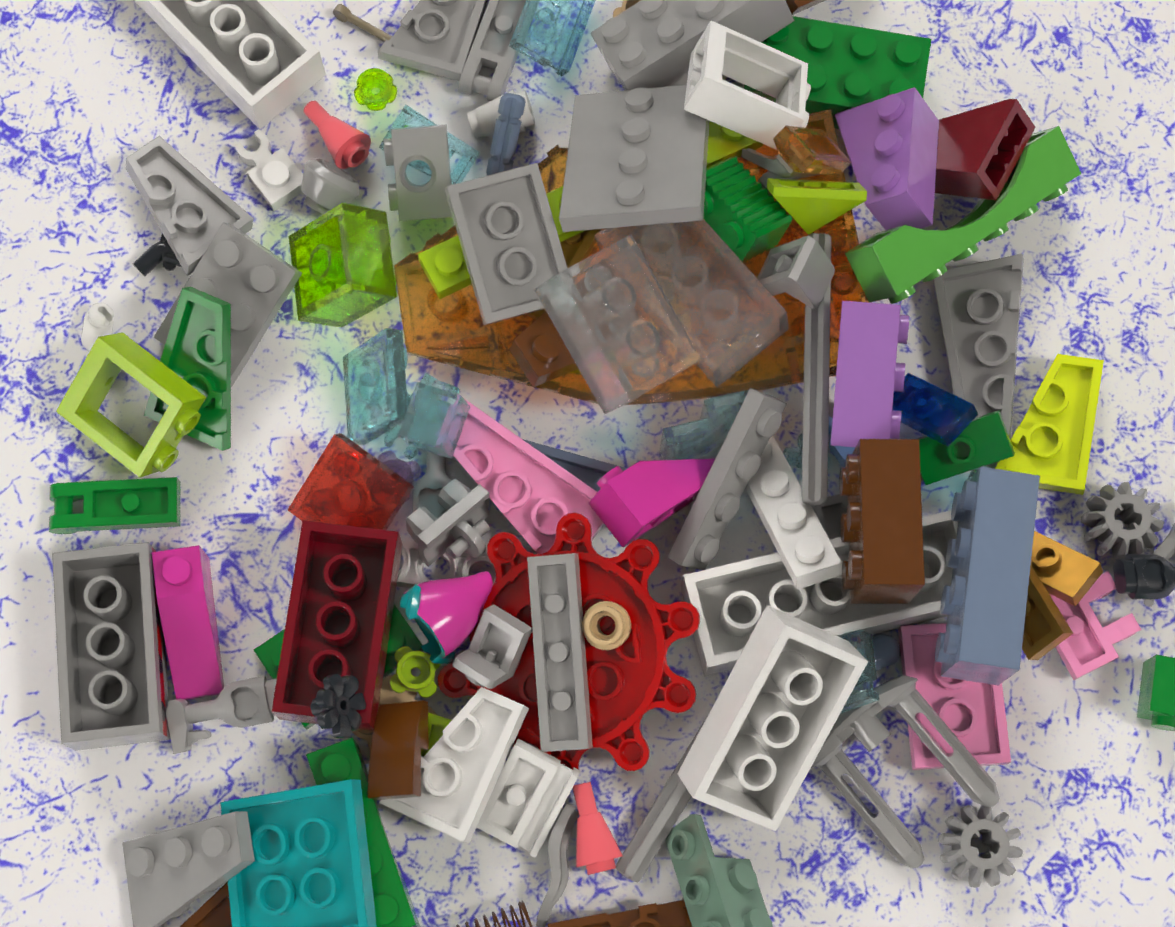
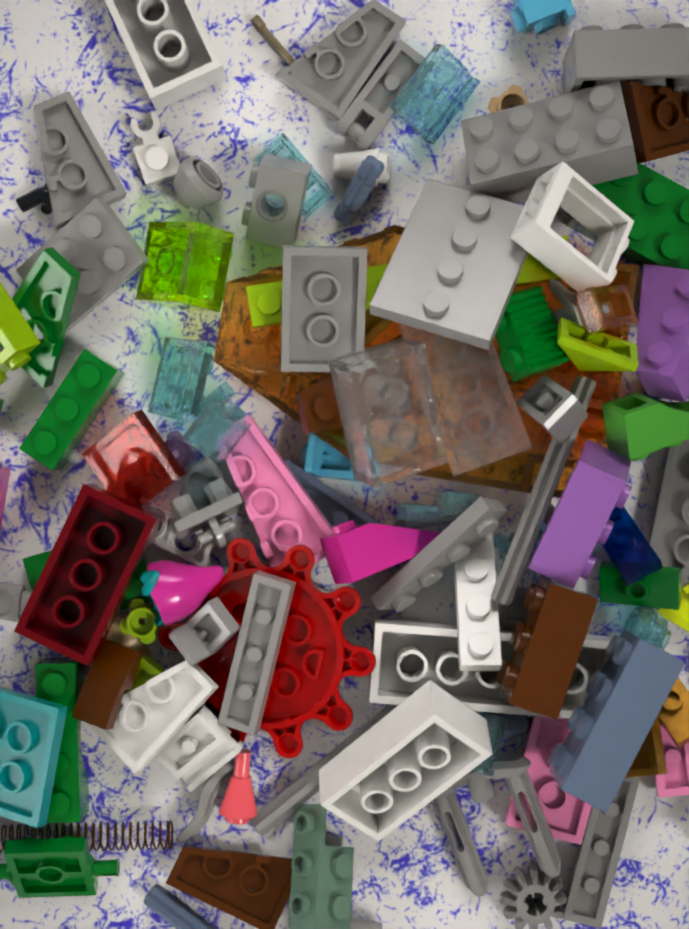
camera: 25 degrees right, 15 degrees up
(262, 463) = (72, 410): none -> green brick
(337, 705) = (65, 650): black plant -> none
(345, 143) = (222, 147): coral cone -> none
(372, 79) = (264, 96): clear neon green plate -> none
(572, 424) = (325, 461): none -> medium azure bracket
(592, 630) = (292, 654): tan plate -> none
(1035, 763) = (598, 858): none -> light grey plate

